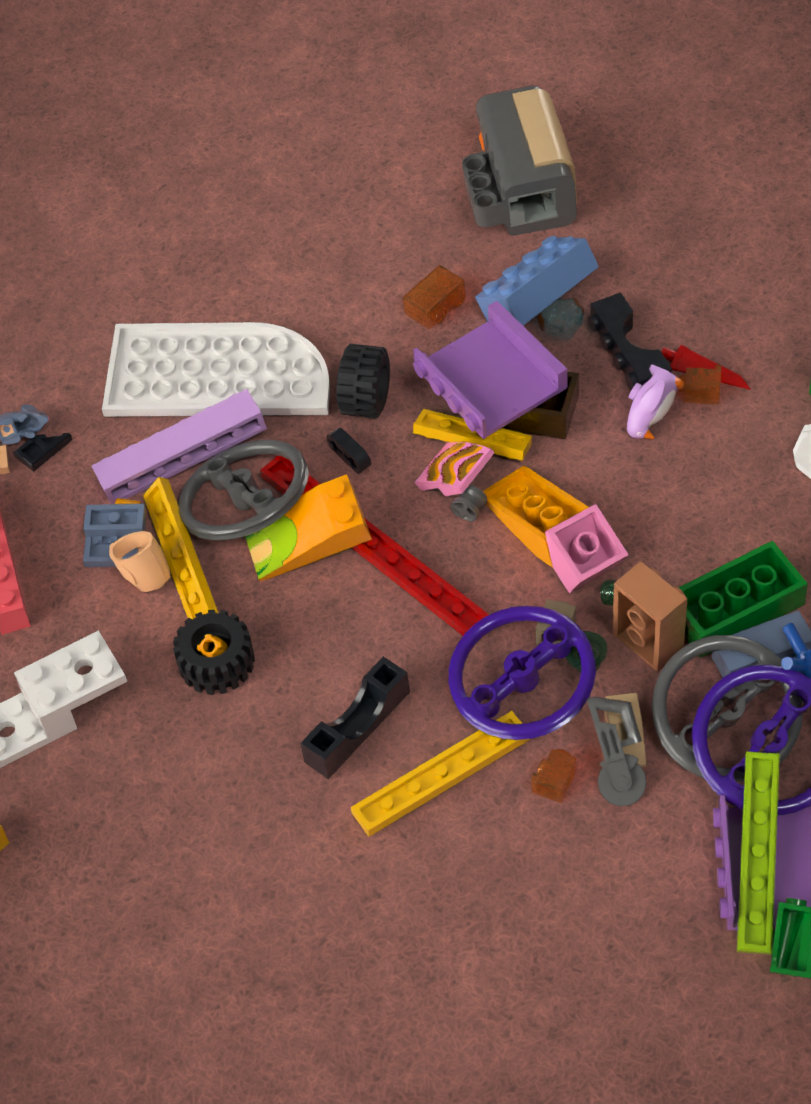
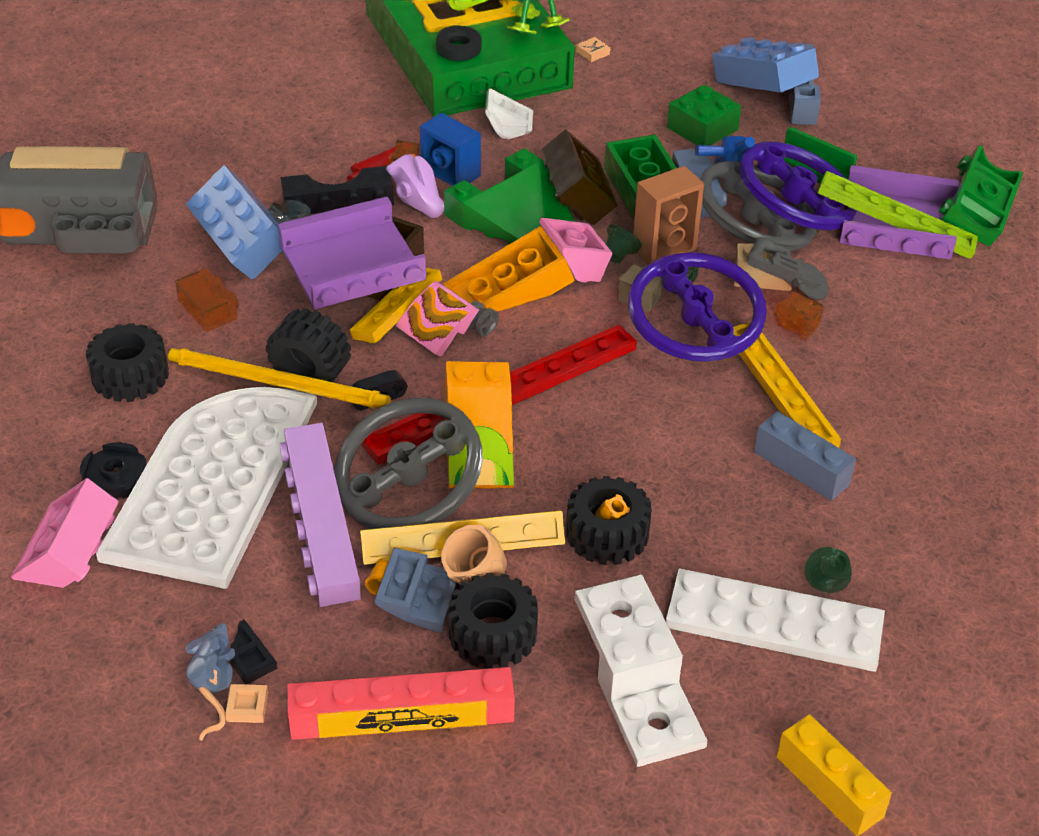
camera: 85 degrees left, 10 degrees down
(90, 609) = (493, 641): none -> black tyre
(130, 303) = (67, 537): none -> bright pink slope
(132, 807) = (776, 619): none -> white plate
(194, 839) = (828, 570): none -> clear green piece
(215, 293) = (114, 455): none -> black plate
(329, 405) = (372, 399): none -> yellow piece
(333, 285) = (127, 362): none -> black tyre
(333, 798) = (804, 455): none -> sand blue brick
(336, 741) = (690, 406): black arch -> none
(658, 503) = (510, 206): none -> green wedge
(707, 531) = (578, 178): none -> dark brown brick
(717, 413) = (451, 149): none -> blue brick

